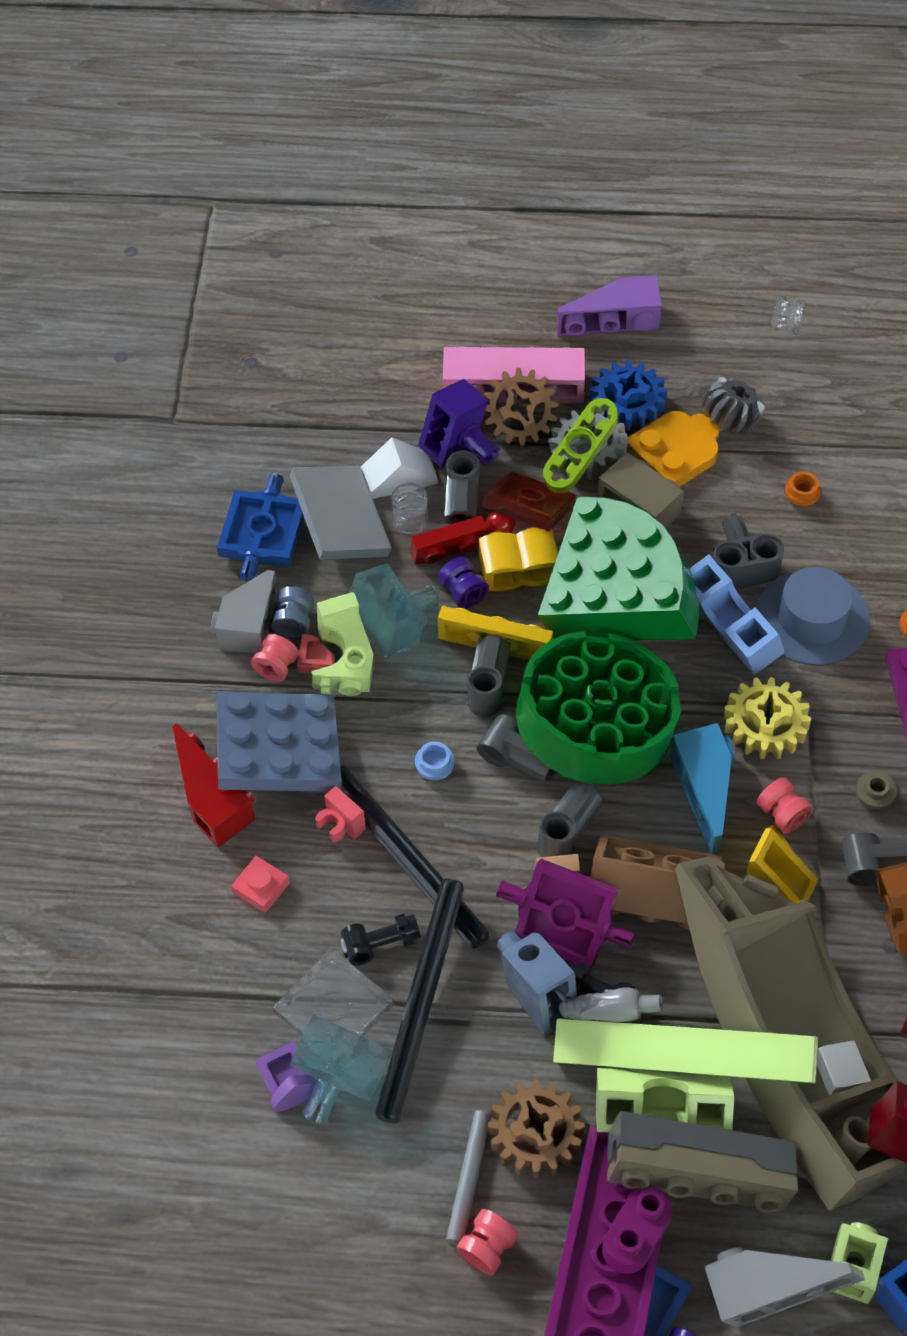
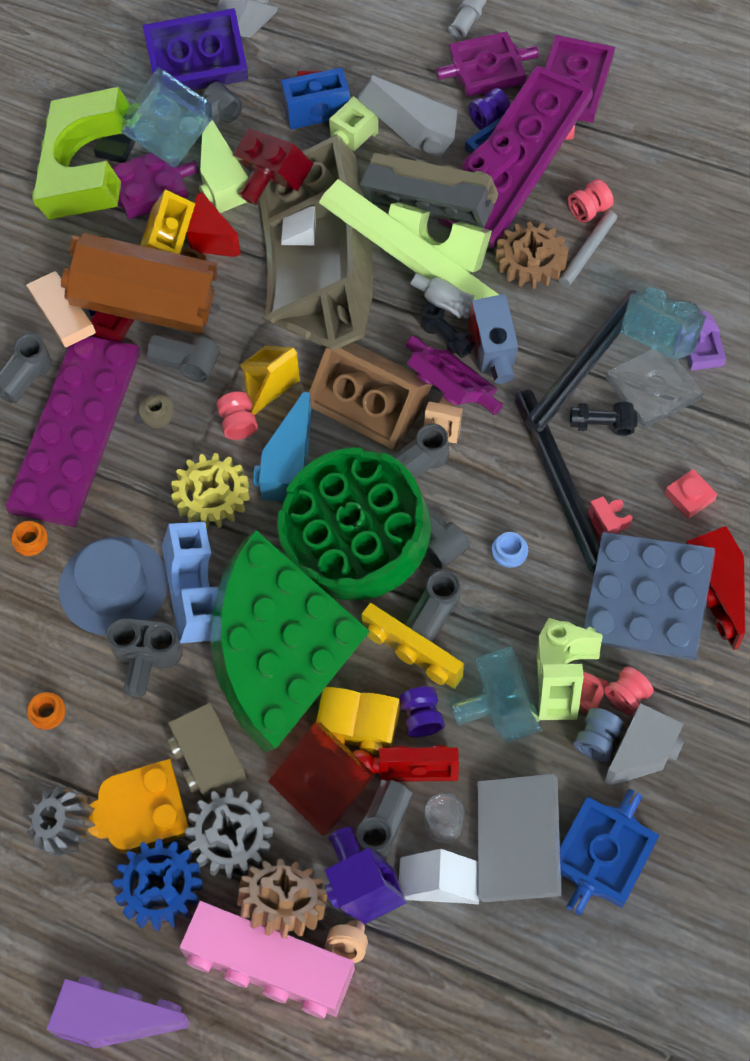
camera: 160 degrees left, 5 degrees up
(603, 429) = (238, 819): lime beam -> none

